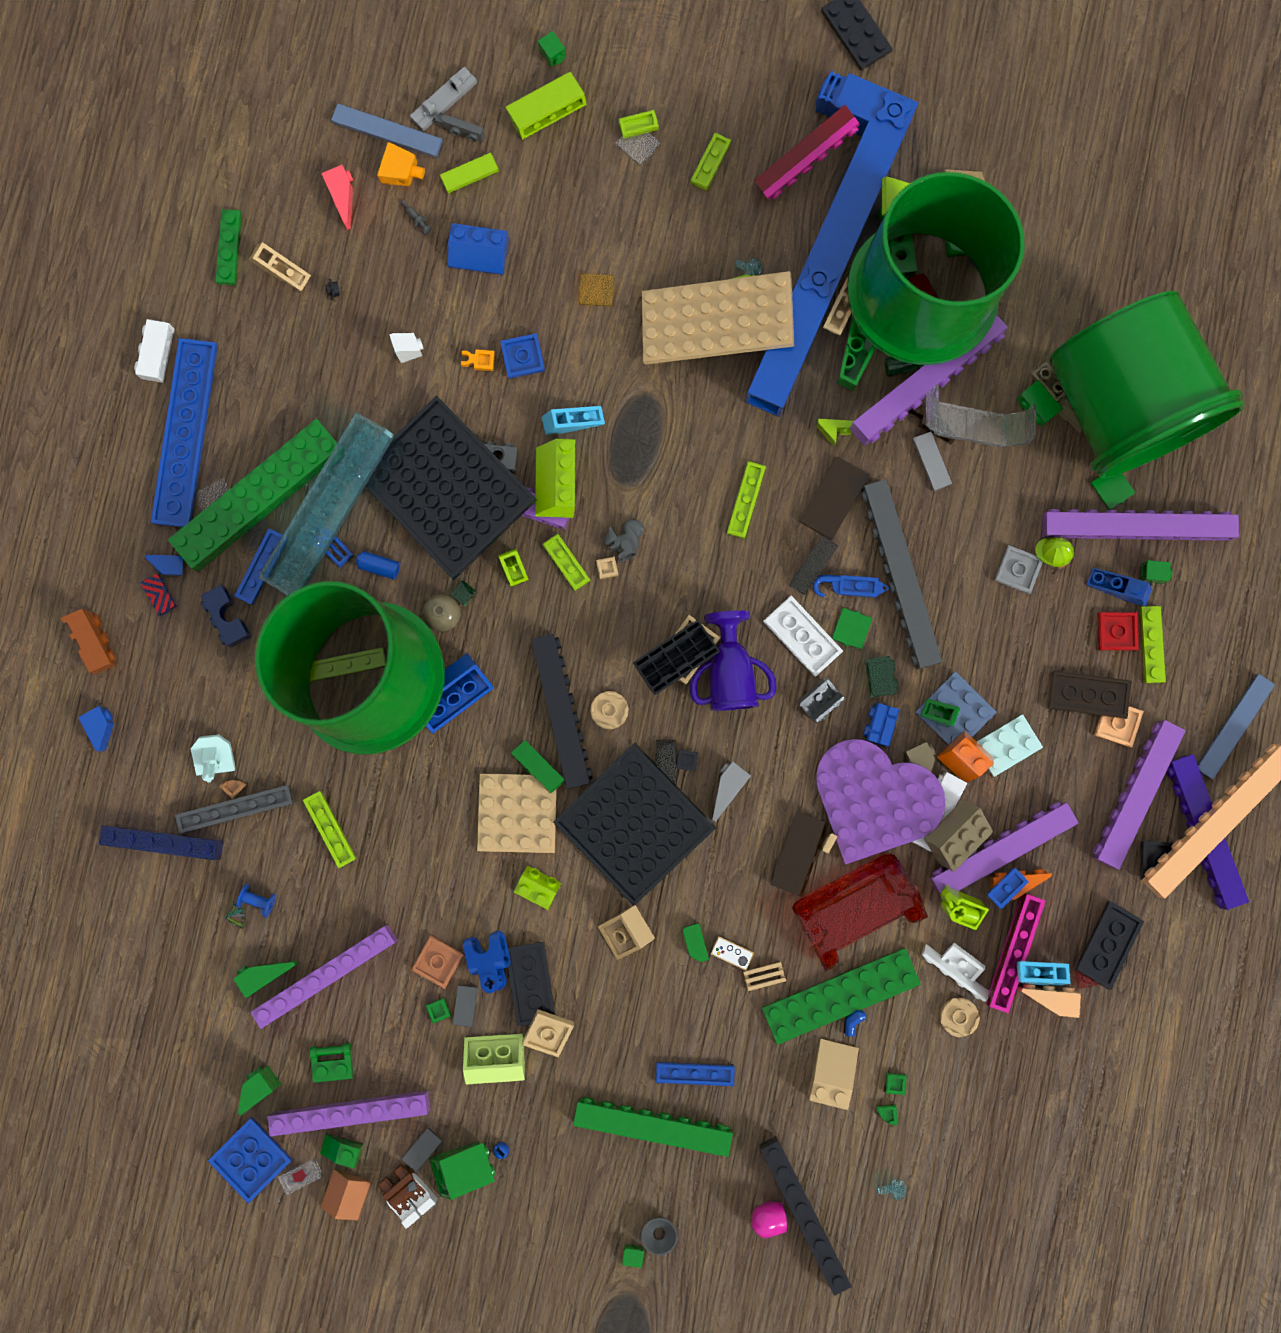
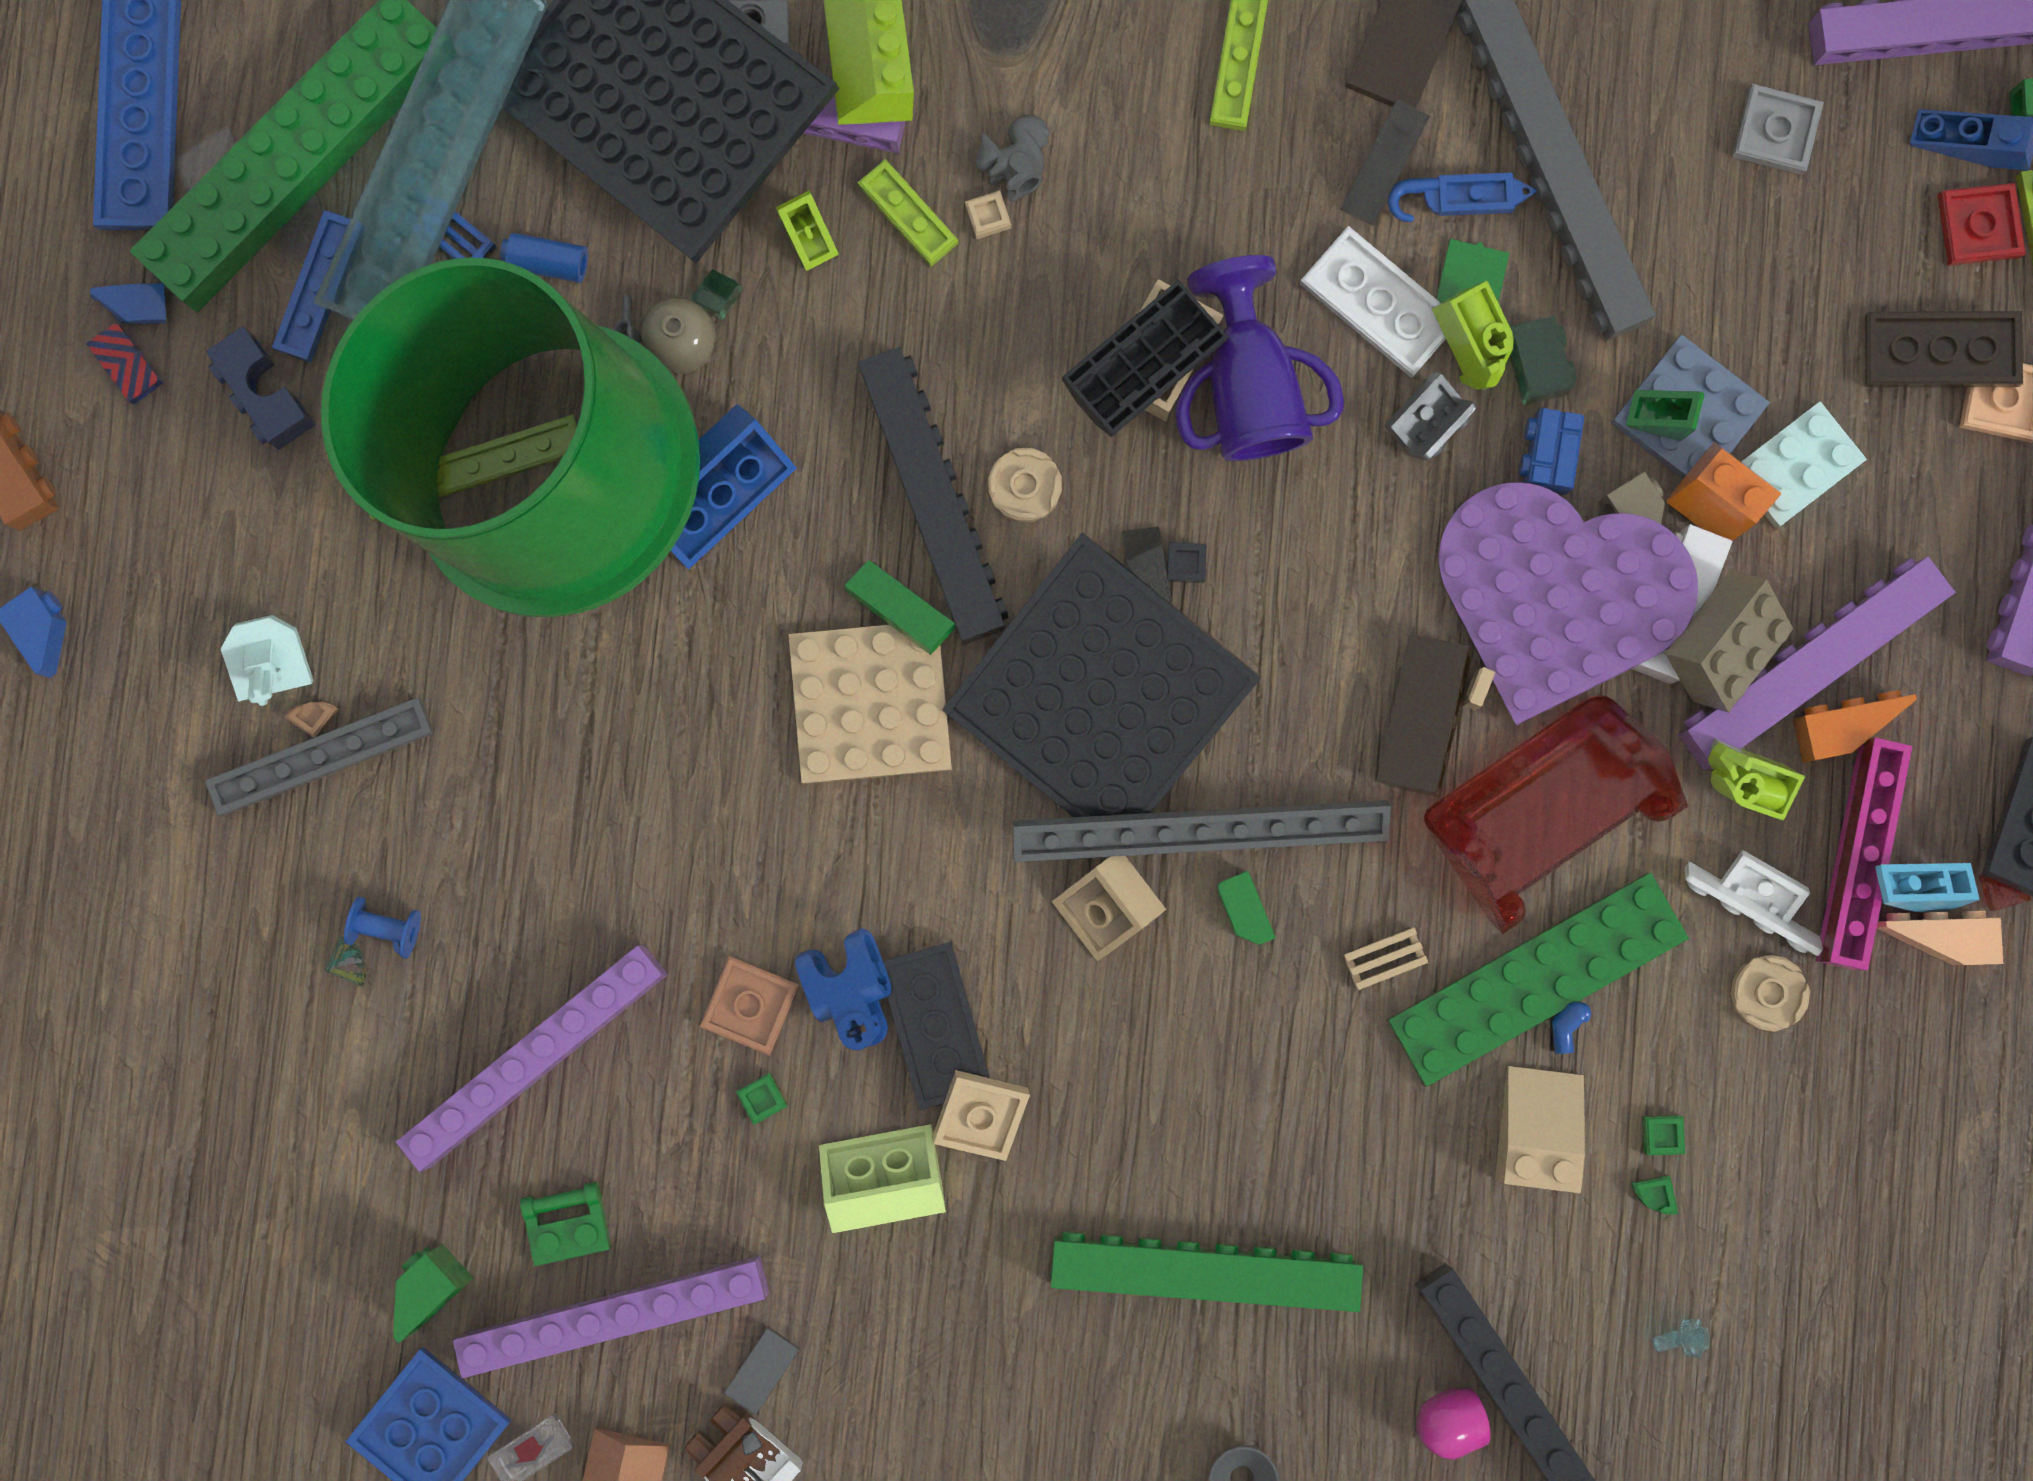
camera: 10 degrees left, 0 degrees up
(161, 842) = (183, 836): clear blue brick -> none
(258, 976) = (400, 1076): green slope -> none
(329, 829) = (510, 774): lime plate -> none
(341, 1150) = (605, 1391): green slope -> none
(414, 607) = (625, 325): none -> dark grey hand
(462, 1170) = (845, 1400): green slope -> none
(465, 1005) = (813, 1083): dark grey tile -> none
(503, 1147) = (921, 1348): blue hinge -> none
(537, 887) = (926, 839): lime bracket -> none
(677, 900) = (1200, 830): none -> dark grey plate
(695, 1073) = (1274, 1162): blue tile -> none
(729, 785) = (1273, 601): light grey slope -> none
(732, 953) = (1317, 921): white tile -> none
(849, 660) = (1476, 334): none -> lime piece
(1007, 888) = (1835, 730): blue plate -> none
(1055, 551) = (1844, 85): lime piece -> none

